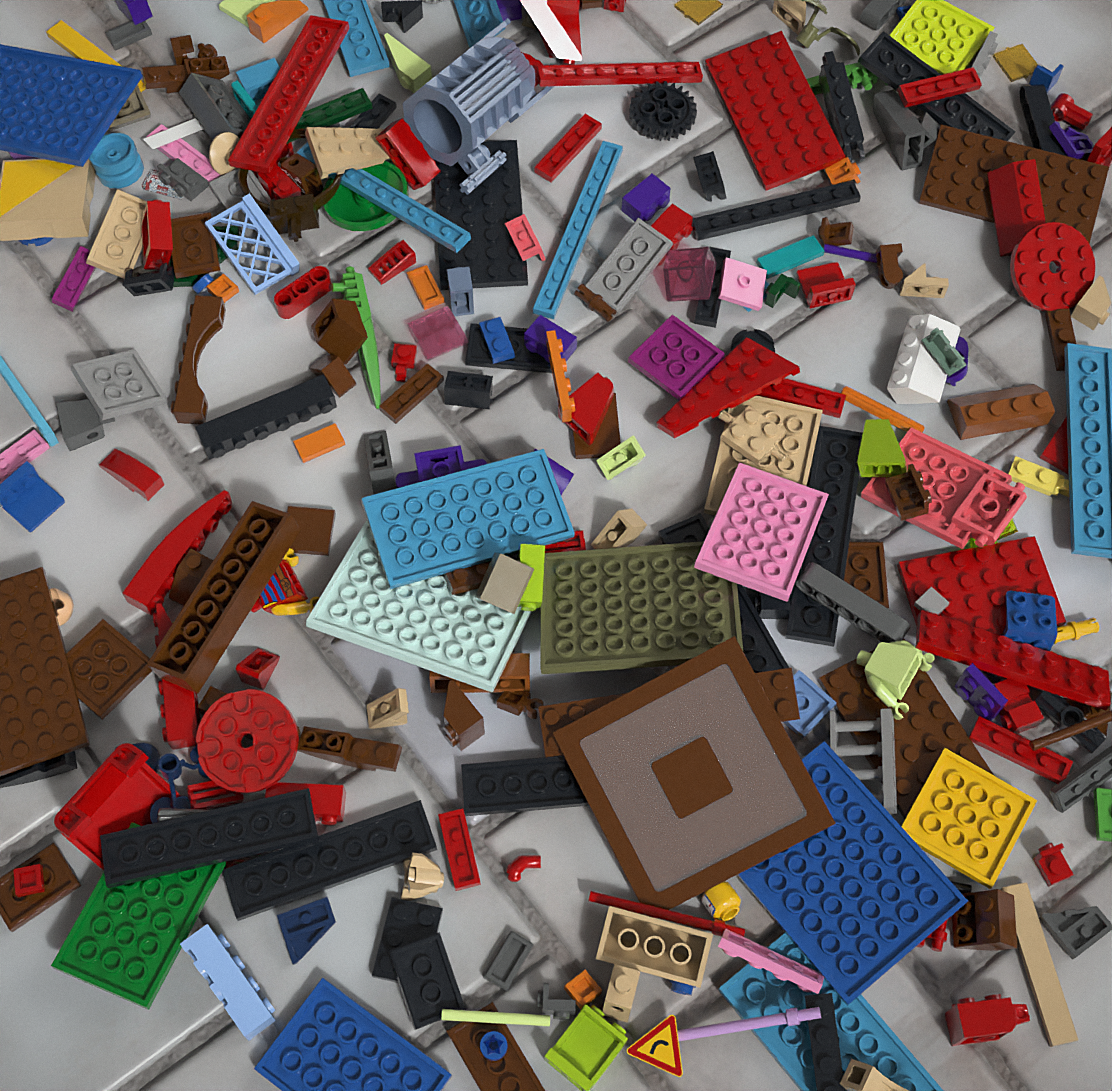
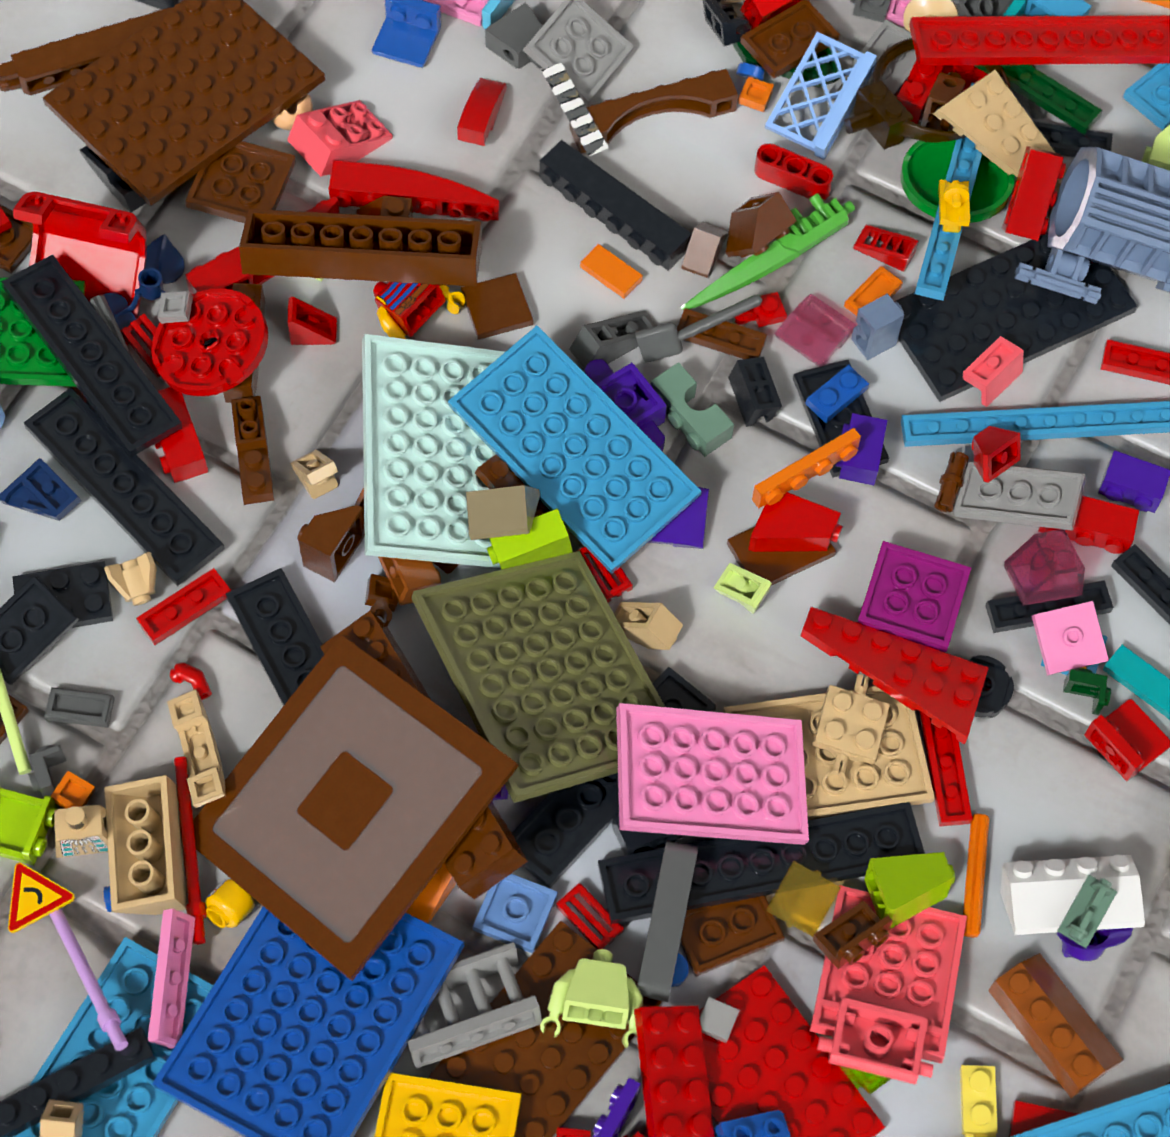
camera: 65 degrees right, 0 degrees up
(96, 585) = (338, 134): none -> coral slope
(174, 407) = (575, 109): none -> sticker
(201, 755) = (175, 307): none -> light grey tile
(400, 427) = (665, 340): none -> dark grey piece
(401, 195) = (954, 205): none -> yellow hips
(482, 435) = (703, 429): none -> sand green arch
(587, 879) = (199, 747): none -> tan slope
(591, 265) = (995, 451): none -> red slope
(824, 667) = (608, 937): none -> red tile
(863, 517) = (803, 898): none -> clear yellow piece

